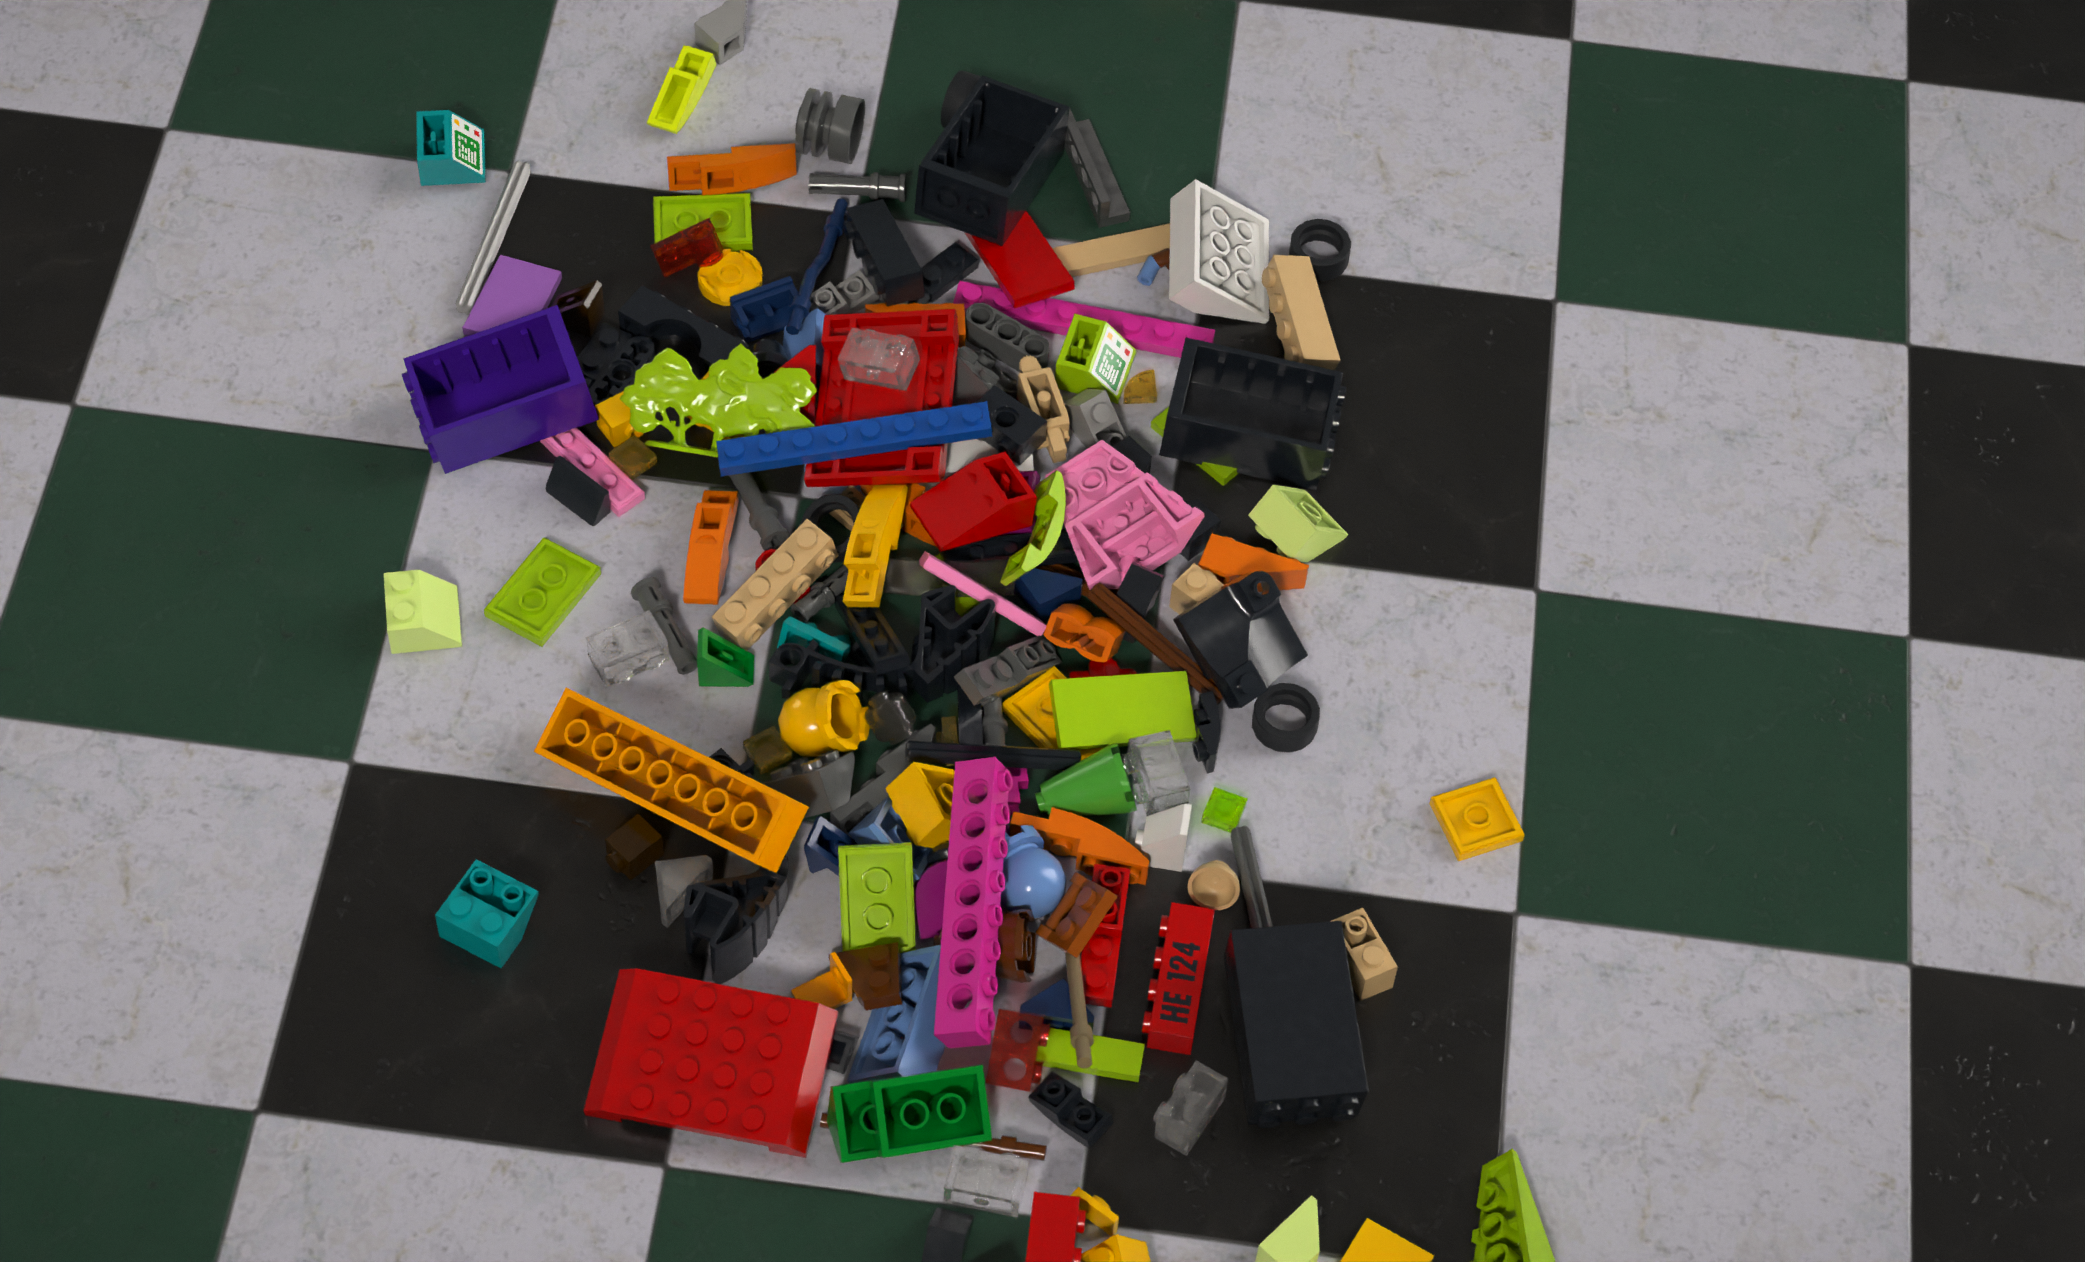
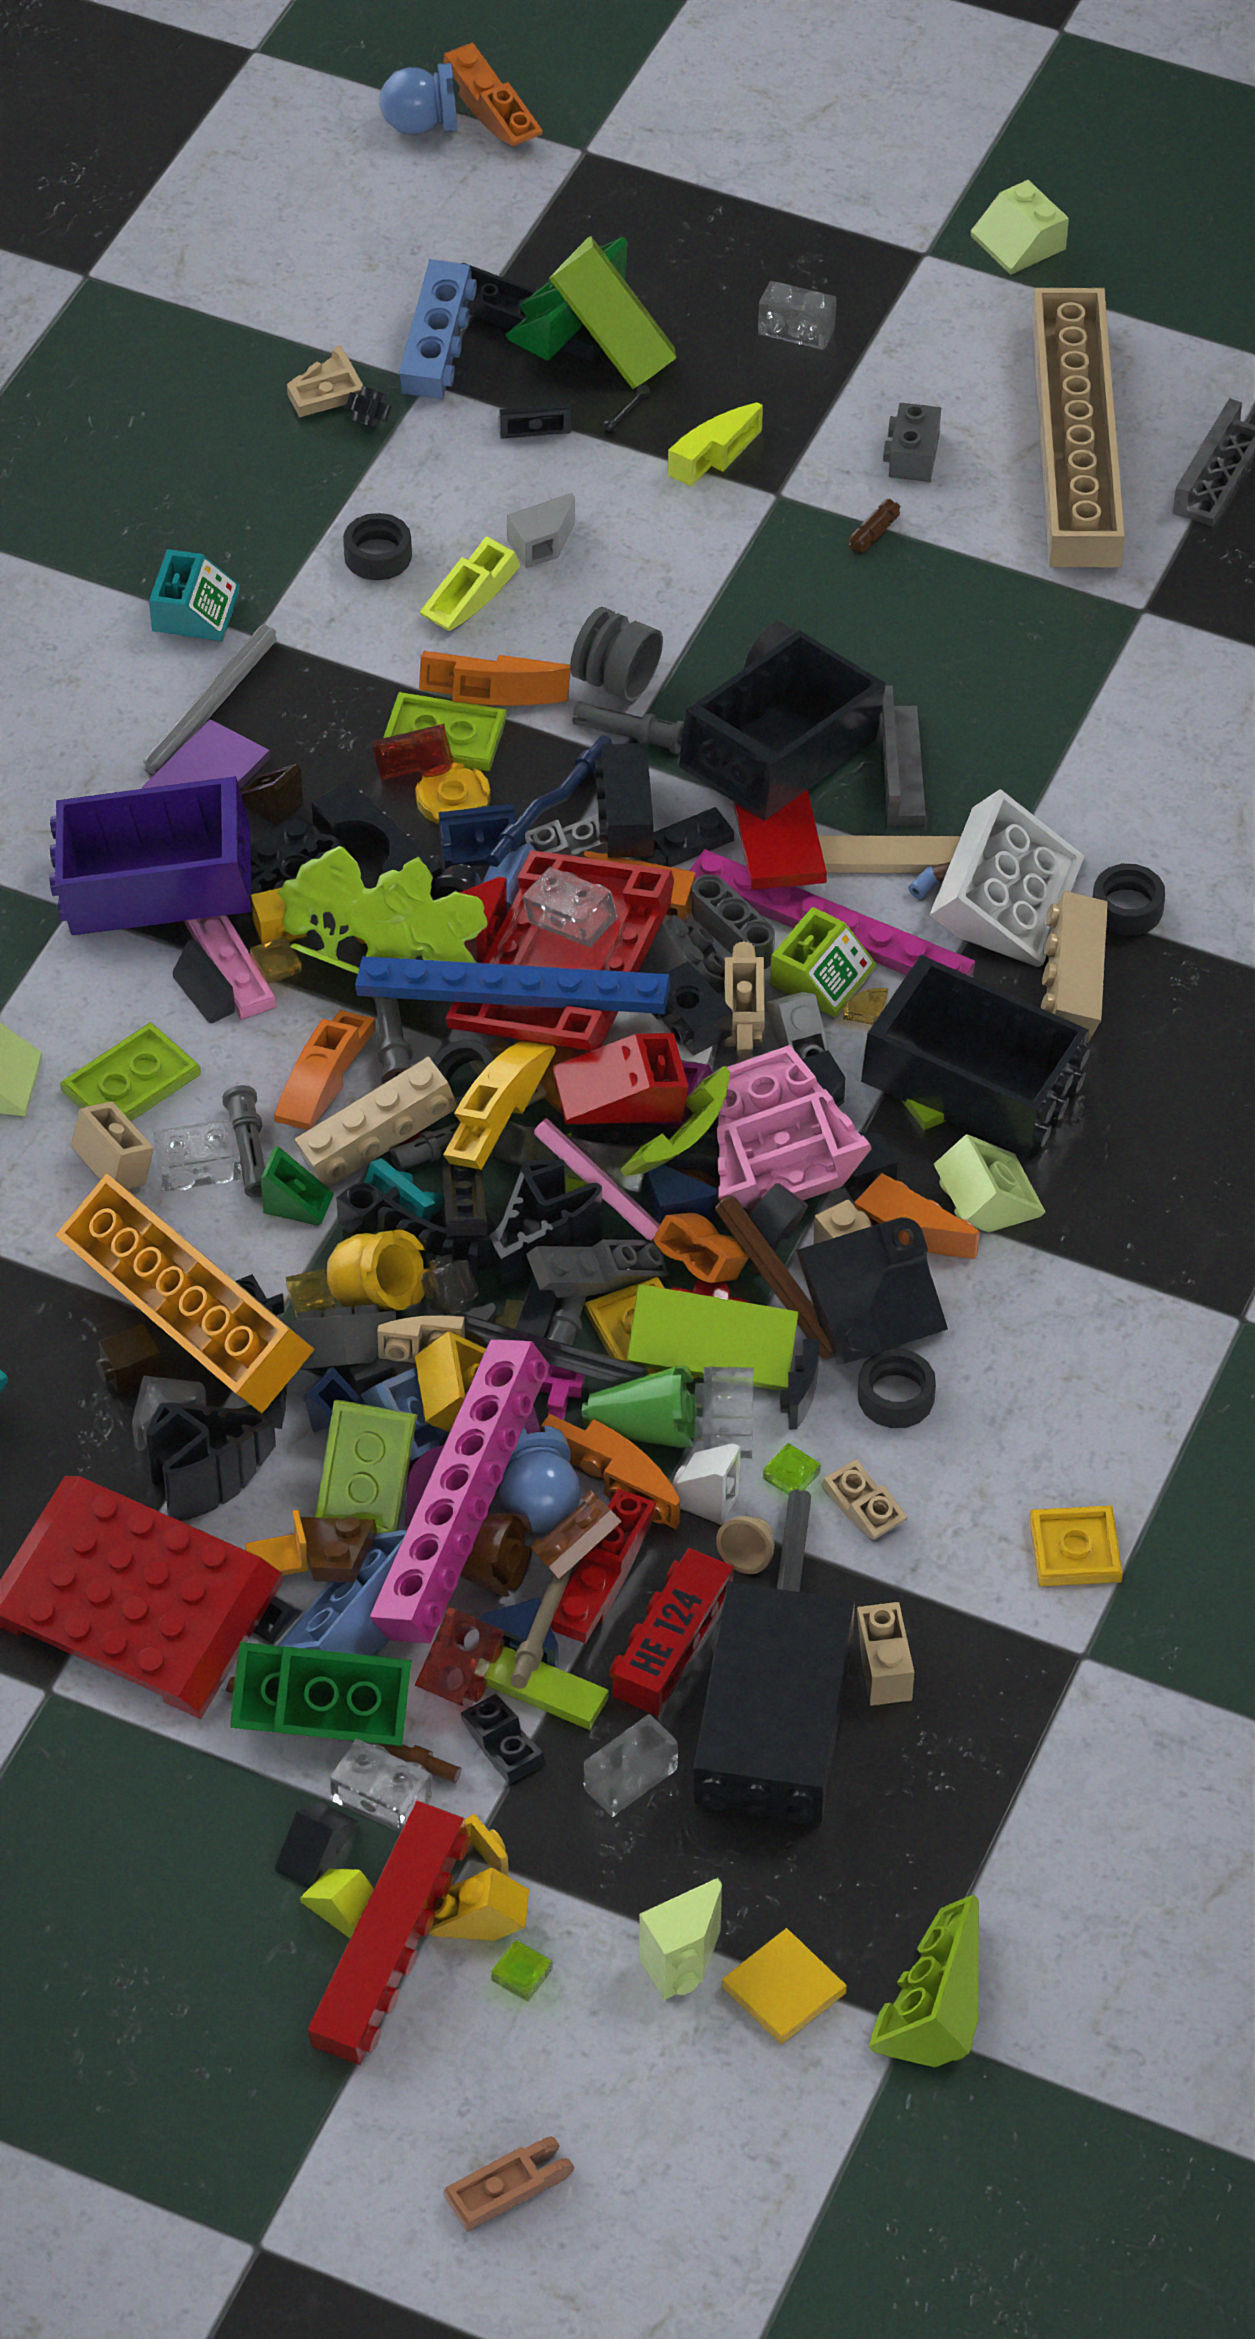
camera: 20 degrees right, 5 degrees down
(553, 658) = (112, 1145): none -> tan brick
(585, 54) = (377, 565): none -> black tyre
(872, 775) = (408, 1336): none -> tan slope
(1291, 823) = (862, 1501): none -> tan slope

